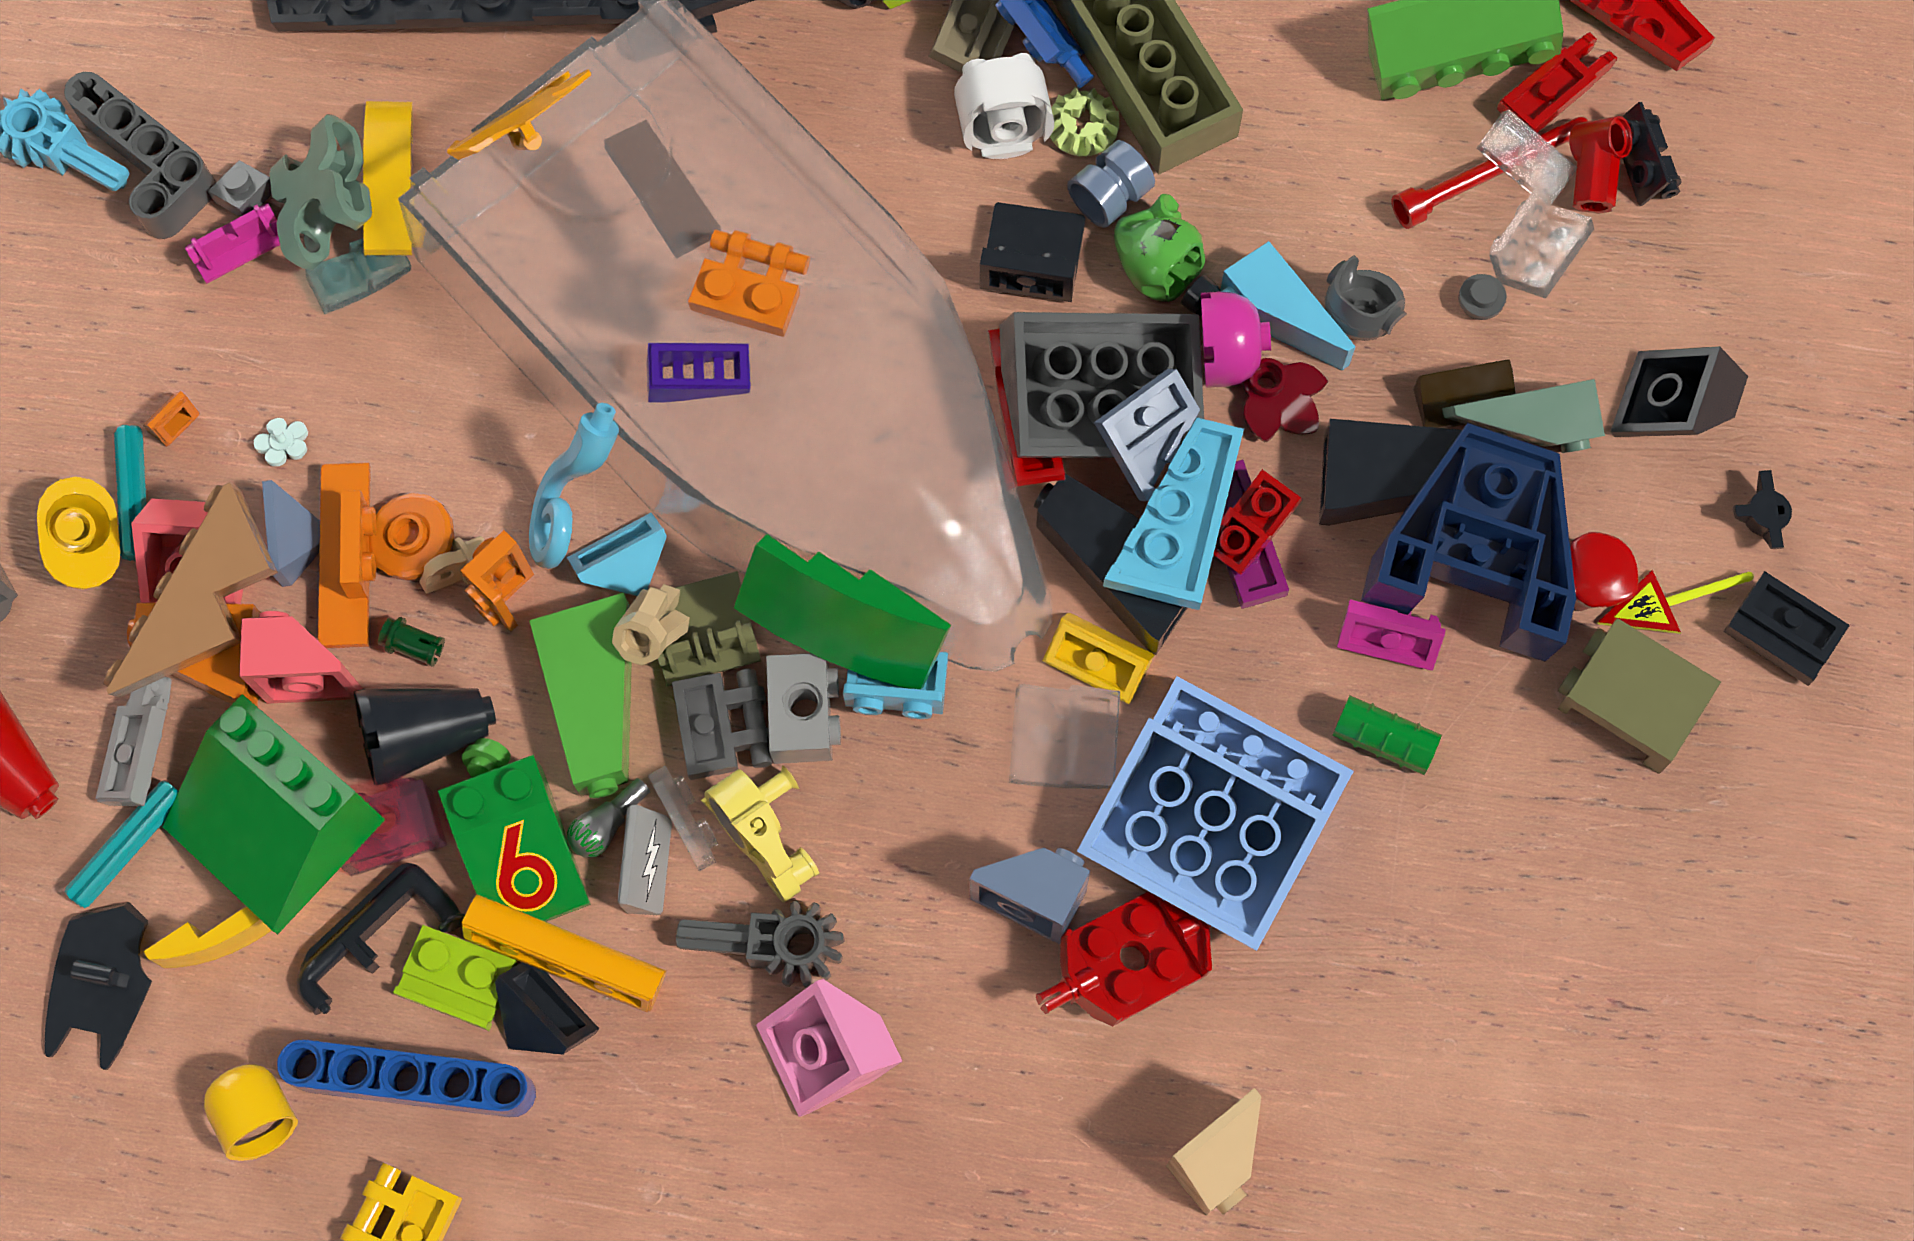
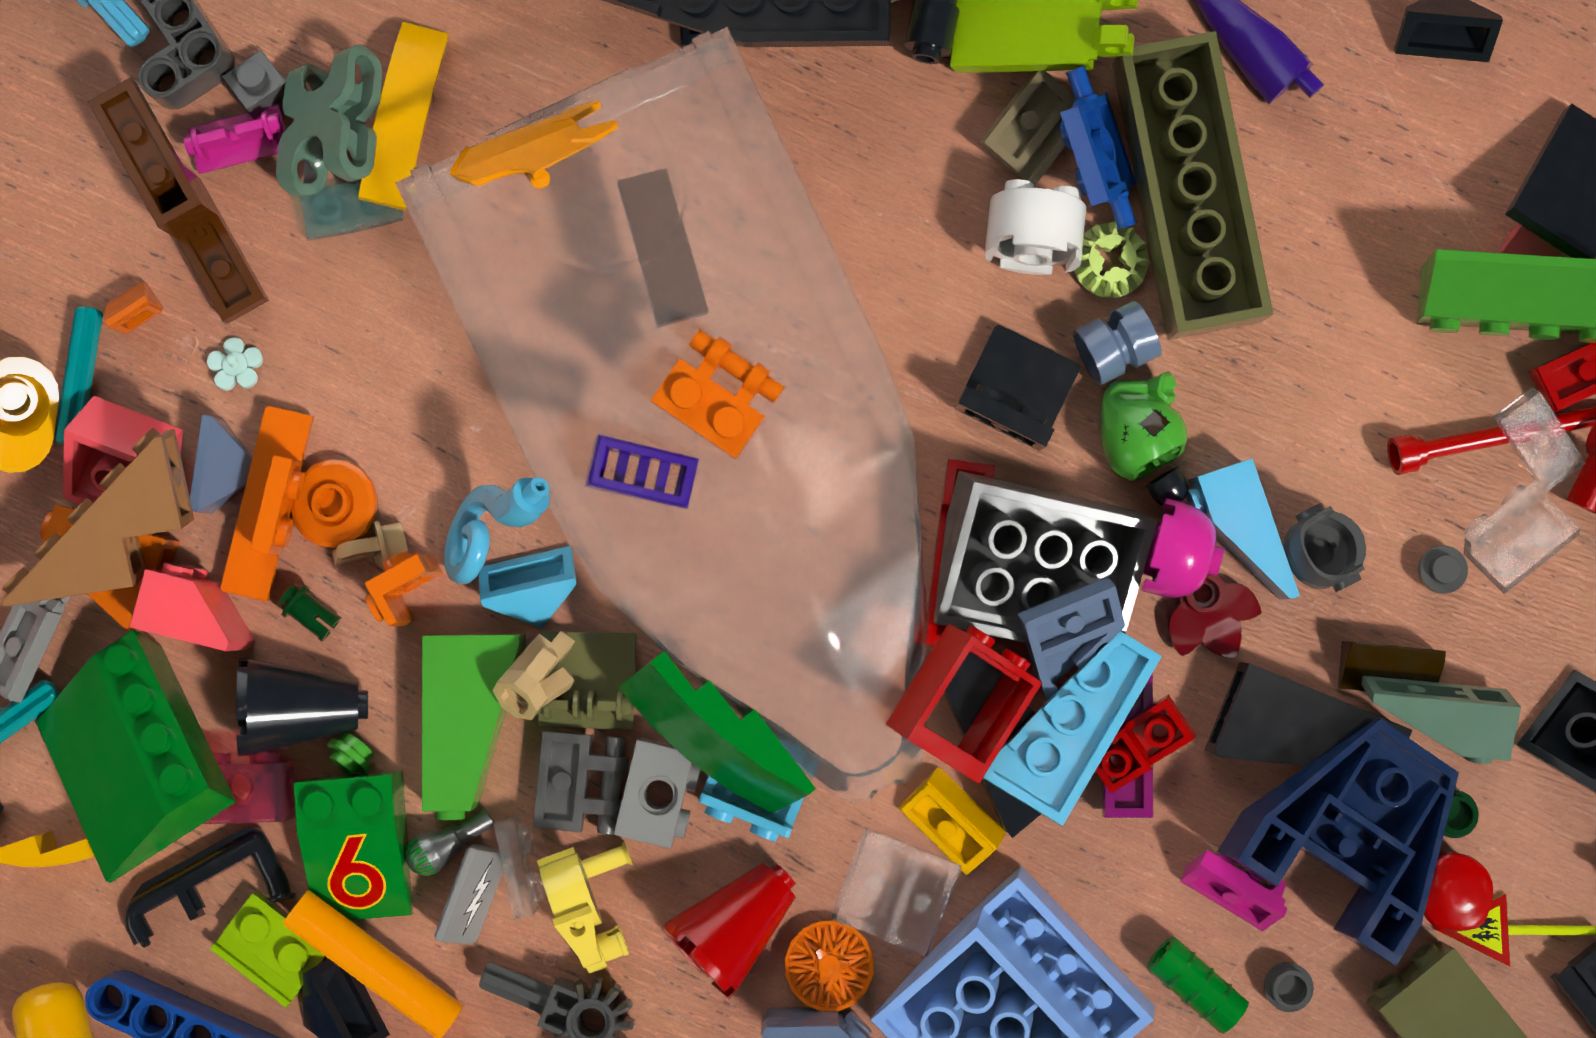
camera: 15 degrees right, 15 degrees up
(194, 300) = (177, 200): none -> reddish brown bracket
(910, 811) = (733, 925): none -> red cone
(1020, 820) = (829, 966): none -> orange wheel
(1052, 558) = (993, 721): none -> red window
(1476, 714) = (1288, 987): none -> dark grey plate
(1581, 508) = (1462, 815): none -> dark green plate

